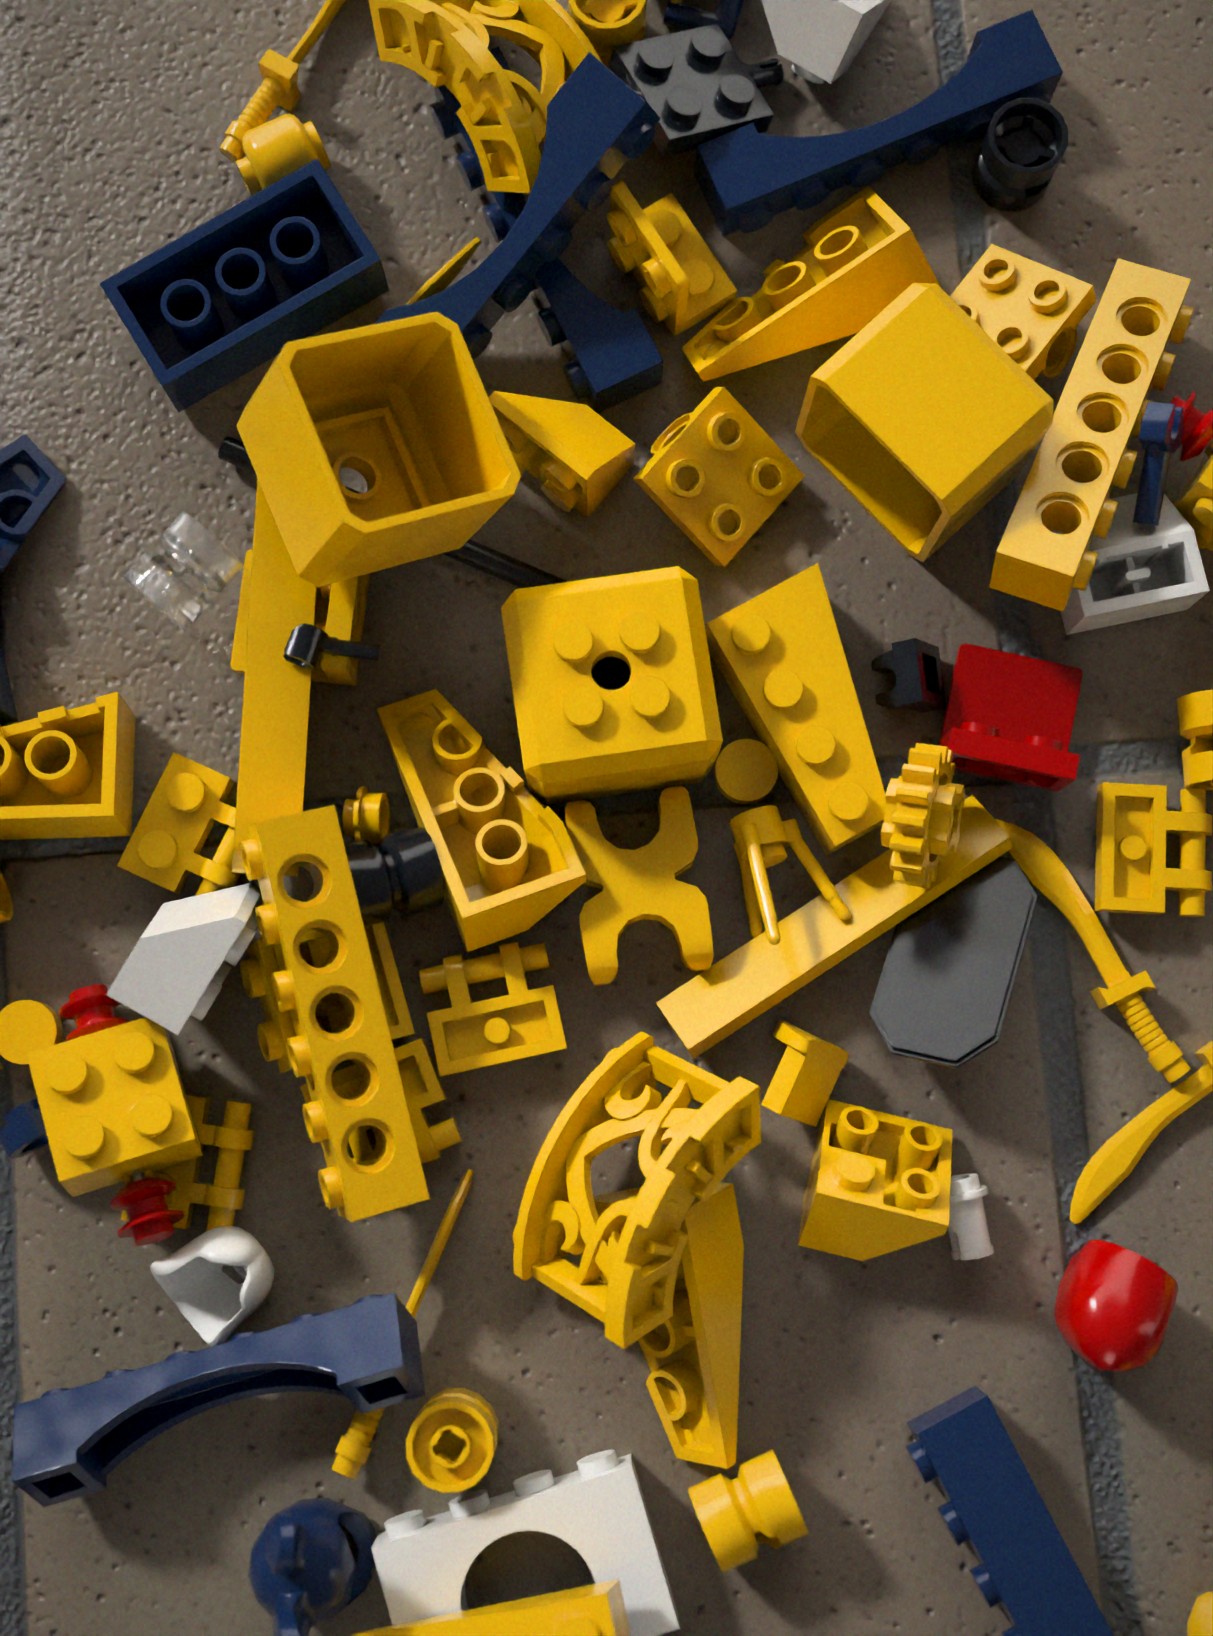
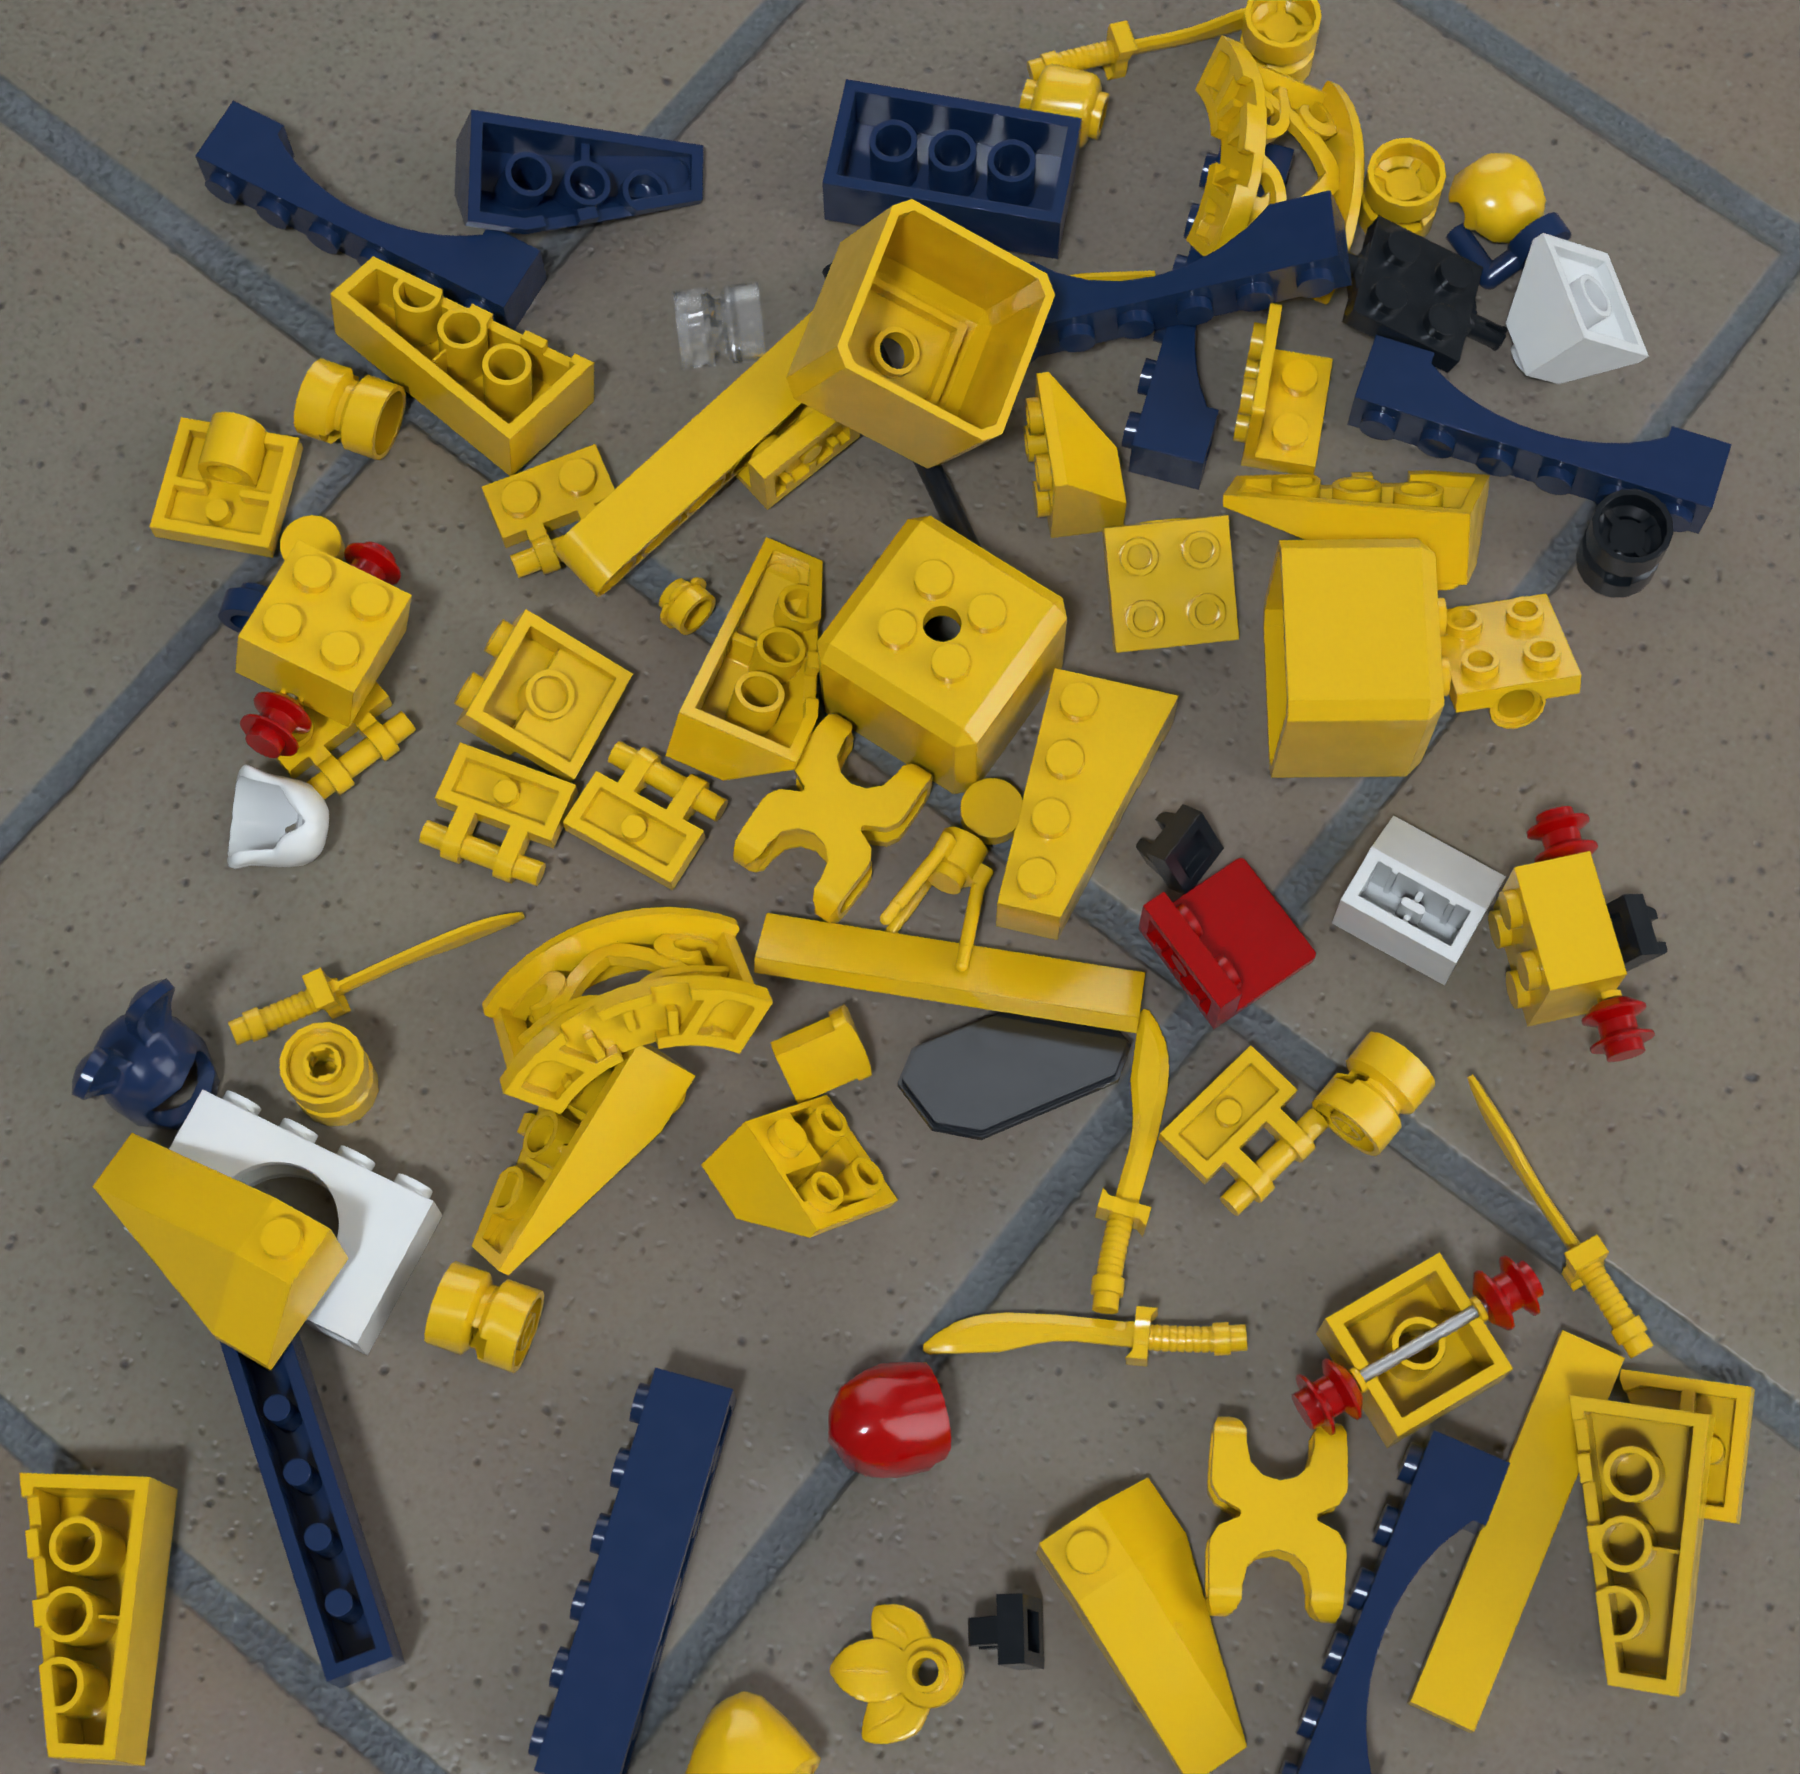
camera: 45 degrees right, 10 degrees down
(84, 1432) = (87, 839): dark blue arch -> none
(181, 955) = (465, 577): white slope -> none
(309, 642) = (753, 435): black hand -> none
(394, 1170) = (623, 566): yellow brick -> none
(396, 875) = (656, 648): black wheel -> none
(922, 815) = (1079, 931): yellow gear -> none
(967, 1218) = (845, 1264): white pin -> none
(1091, 437) = (1474, 776): yellow brick -> none
(1159, 437) = (1522, 814): dark blue bar -> none

